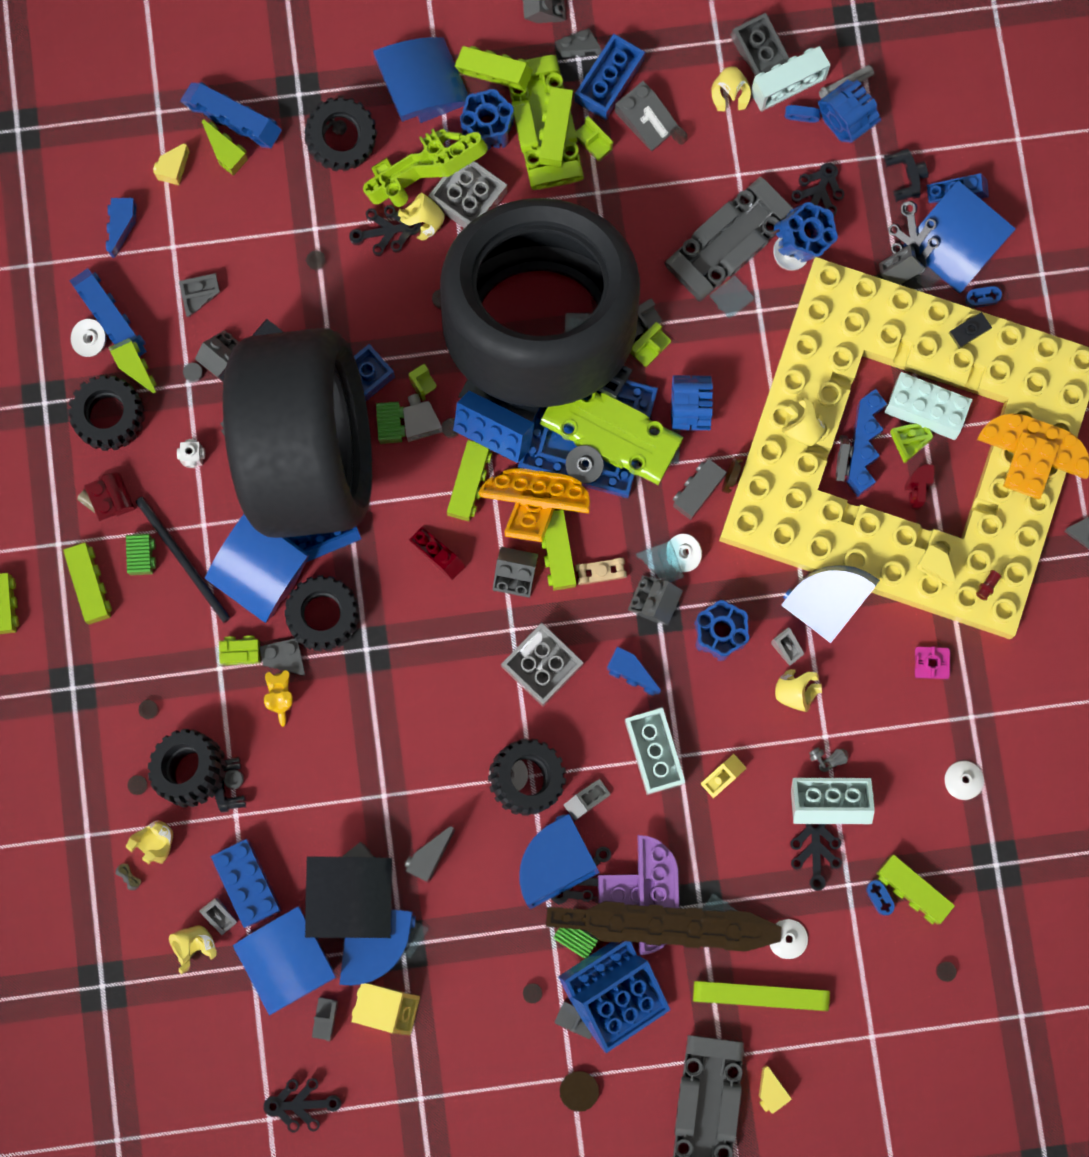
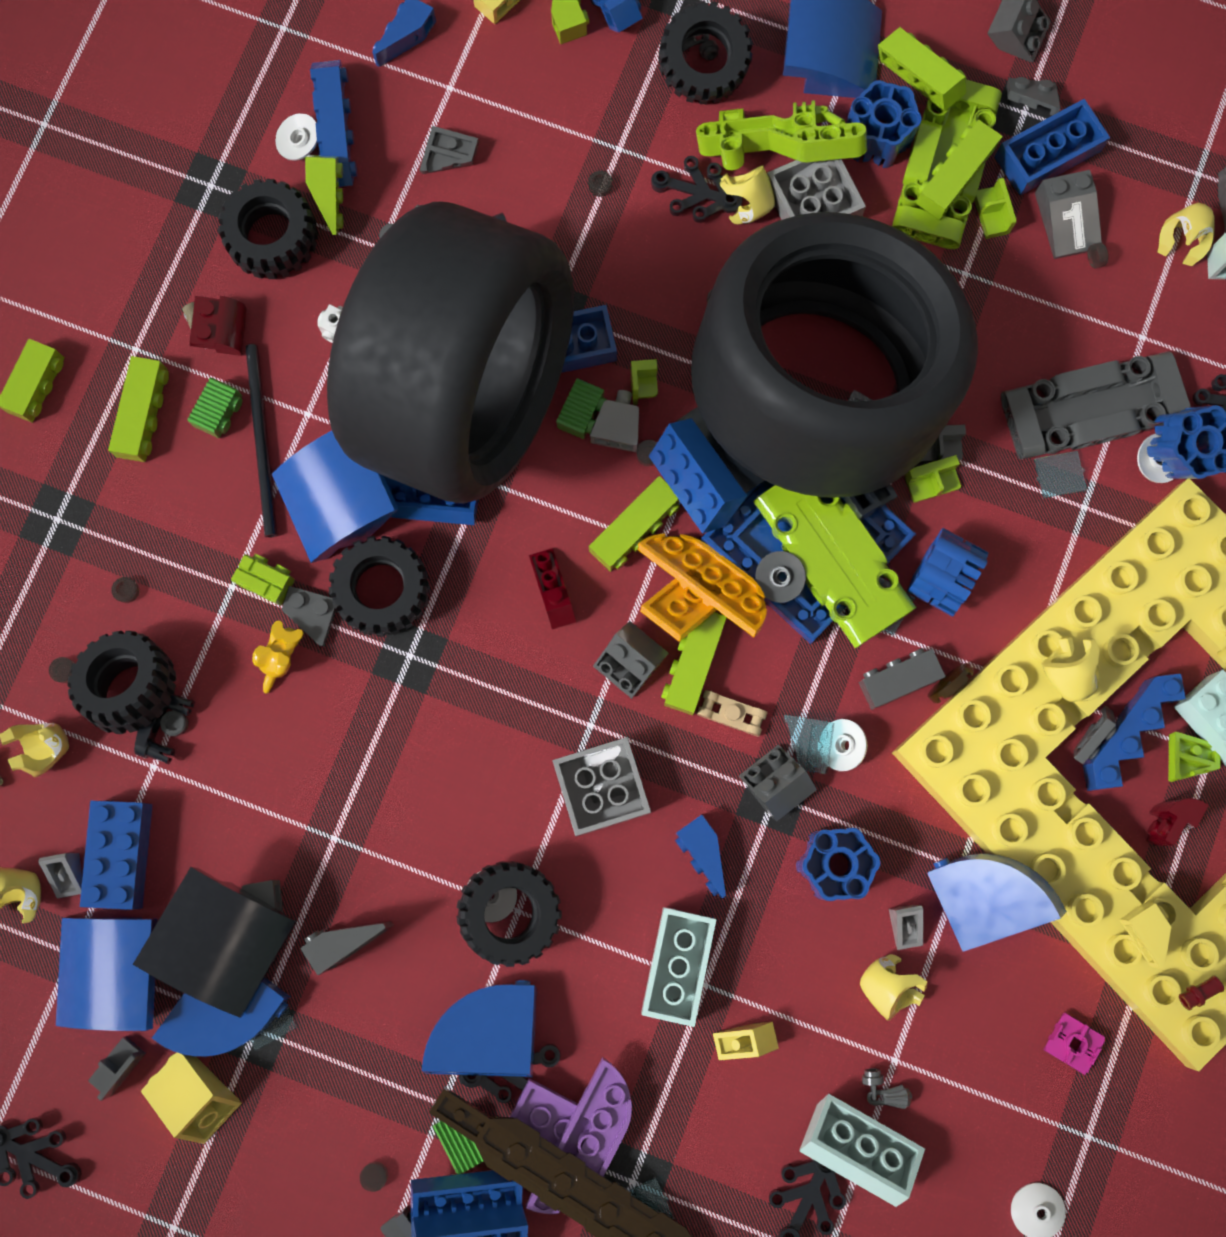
camera: 30 degrees right, 0 degrees up
(587, 799) = (566, 978): light grey arch -> none

